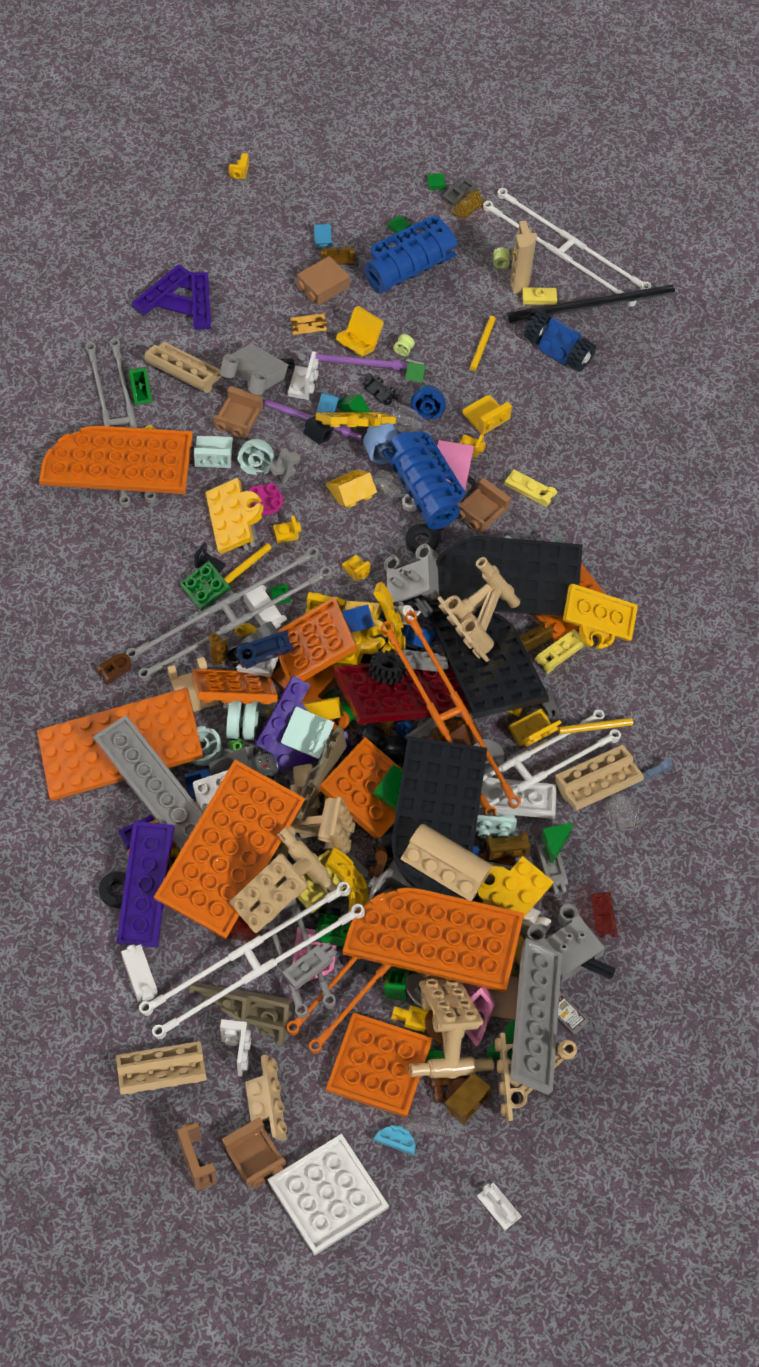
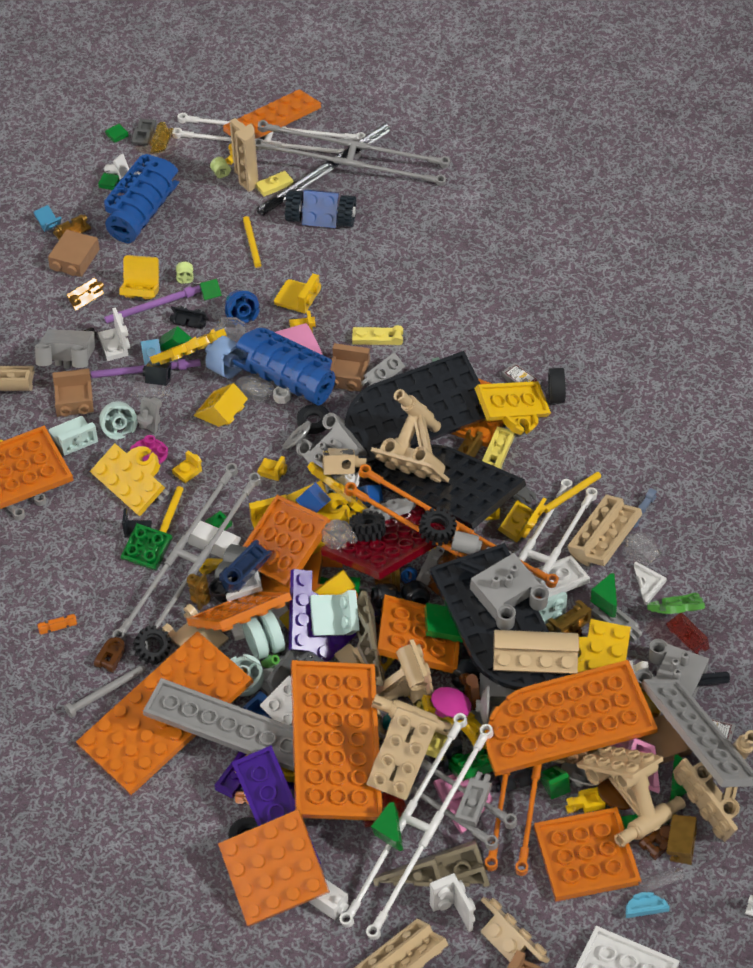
camera: 25 degrees left, 10 degrees down
(89, 697) = (71, 709): none -> light grey bar
(91, 617) = (57, 624): none -> orange axle
(111, 931) = (273, 868): none -> orange plate
(149, 666) = (143, 653): none -> black tyre
(224, 950) = (388, 827): none -> green slope
(351, 867) = (450, 702): none -> dark pink dish
(354, 663) = (337, 534): none -> clear hand
(396, 549) = (298, 435): none -> light grey dish
(404, 594) = (333, 461): none -> tan torso
(413, 215) = (119, 167): none -> white bracket
(445, 692) = (432, 534): none -> black tyre
(454, 730) = (466, 543): none -> light grey brick
(457, 789) = (504, 587): none -> light grey piece
(510, 525) = (384, 370): none -> light grey hinge
(580, 229) = (279, 112): none -> orange plate
(607, 846) = (648, 581): none -> white tile
(615, 882) = (677, 604): none -> bright green tile
(628, 293) = (352, 148): none -> light grey bar
(628, 590) = (515, 373): none -> tile
(651, 617) = (556, 385): none -> black tyre

